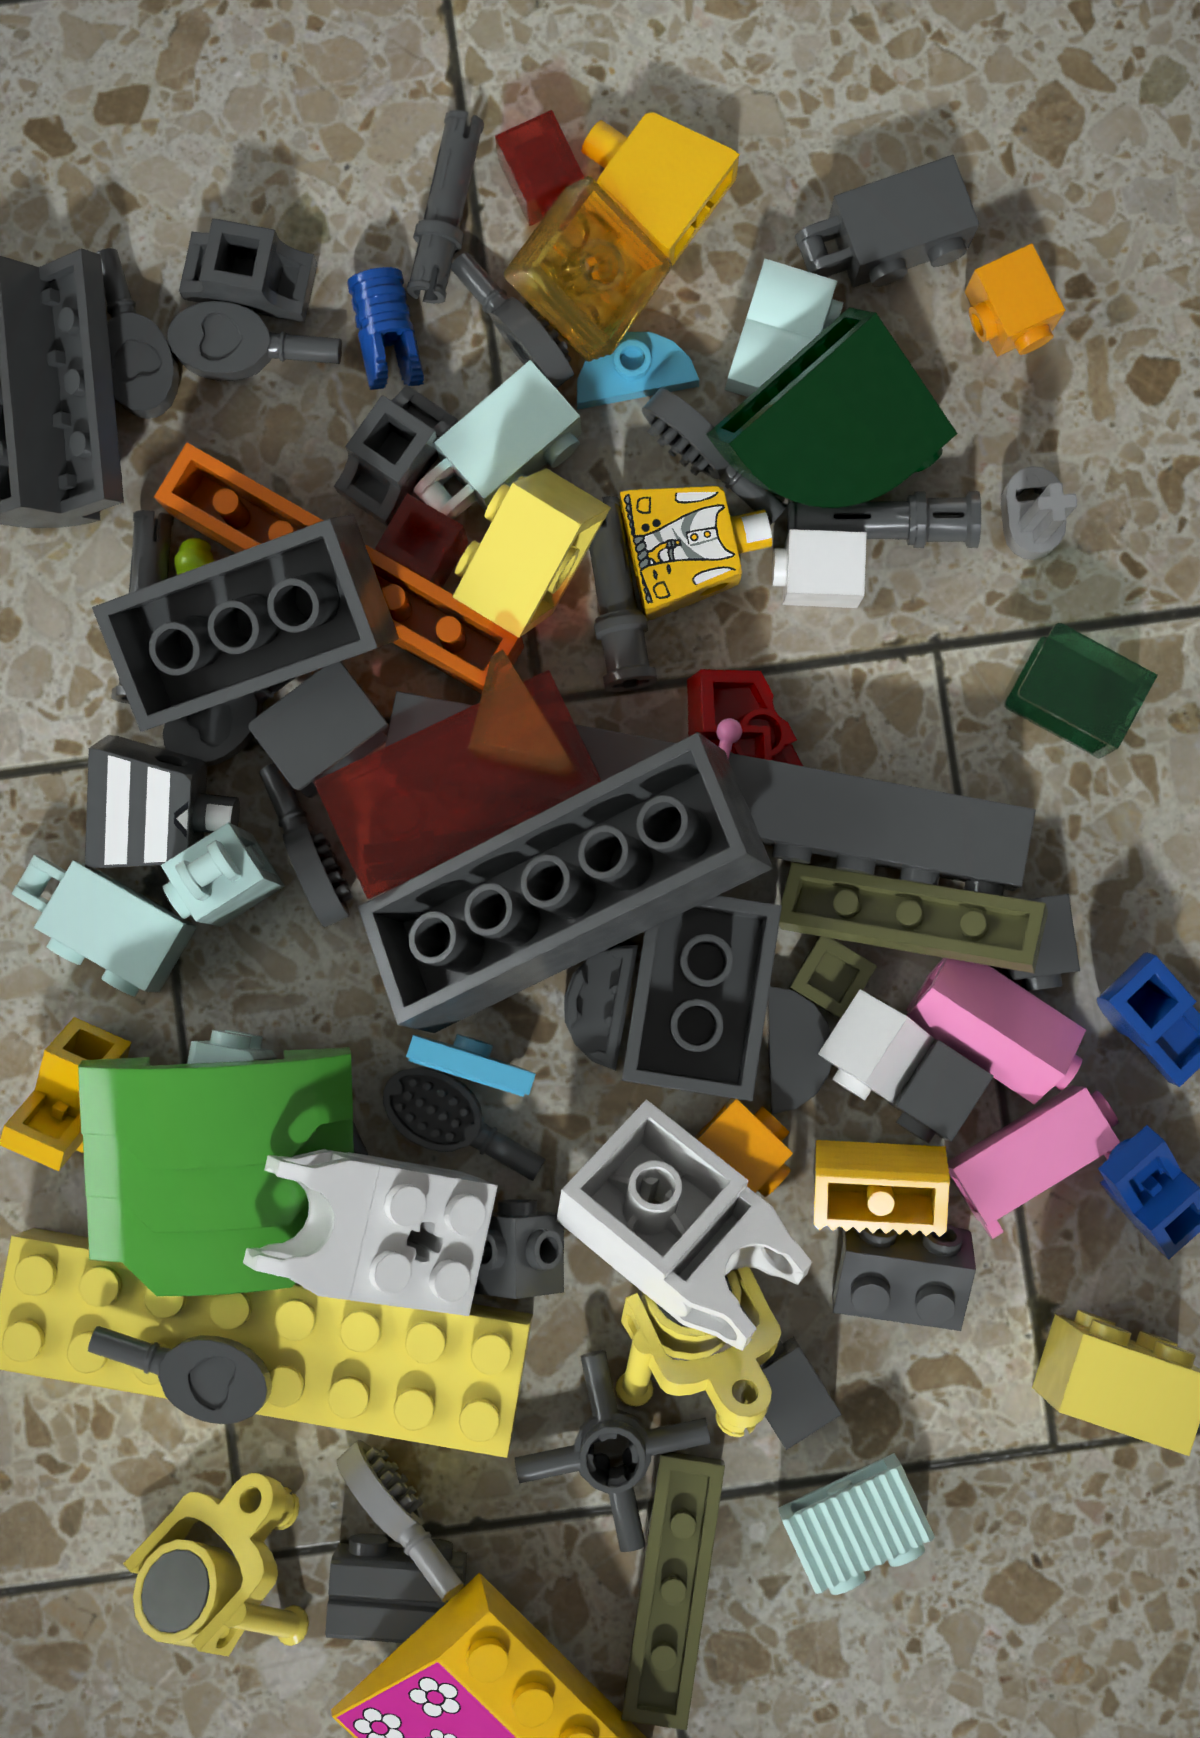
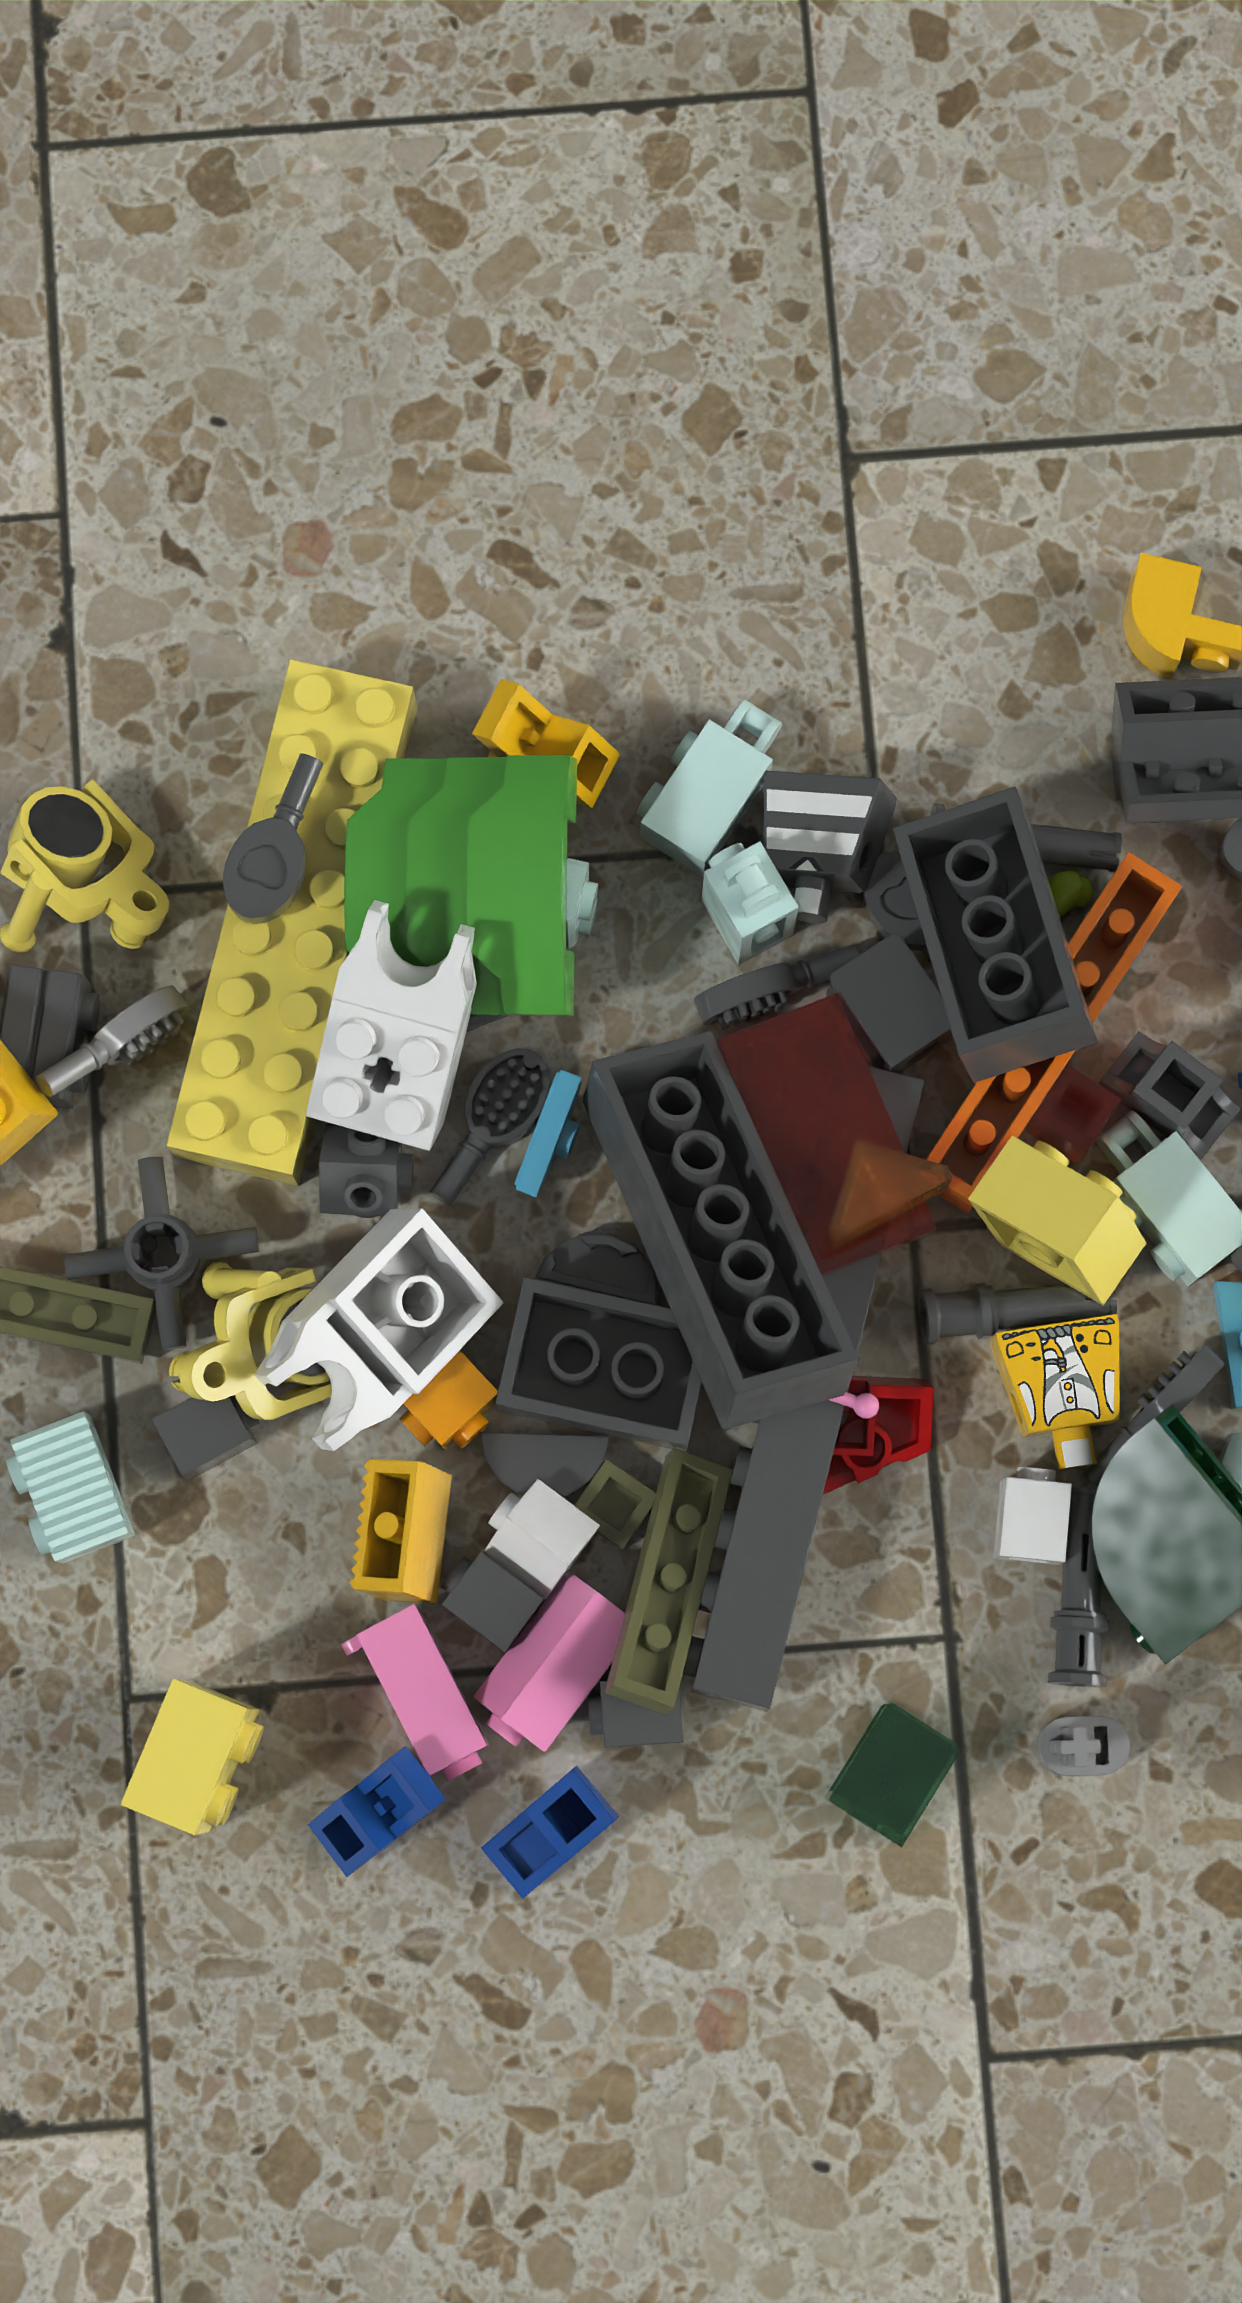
camera: 85 degrees right, 5 degrees down
(906, 1276) = (310, 1555): dark grey bracket -> none

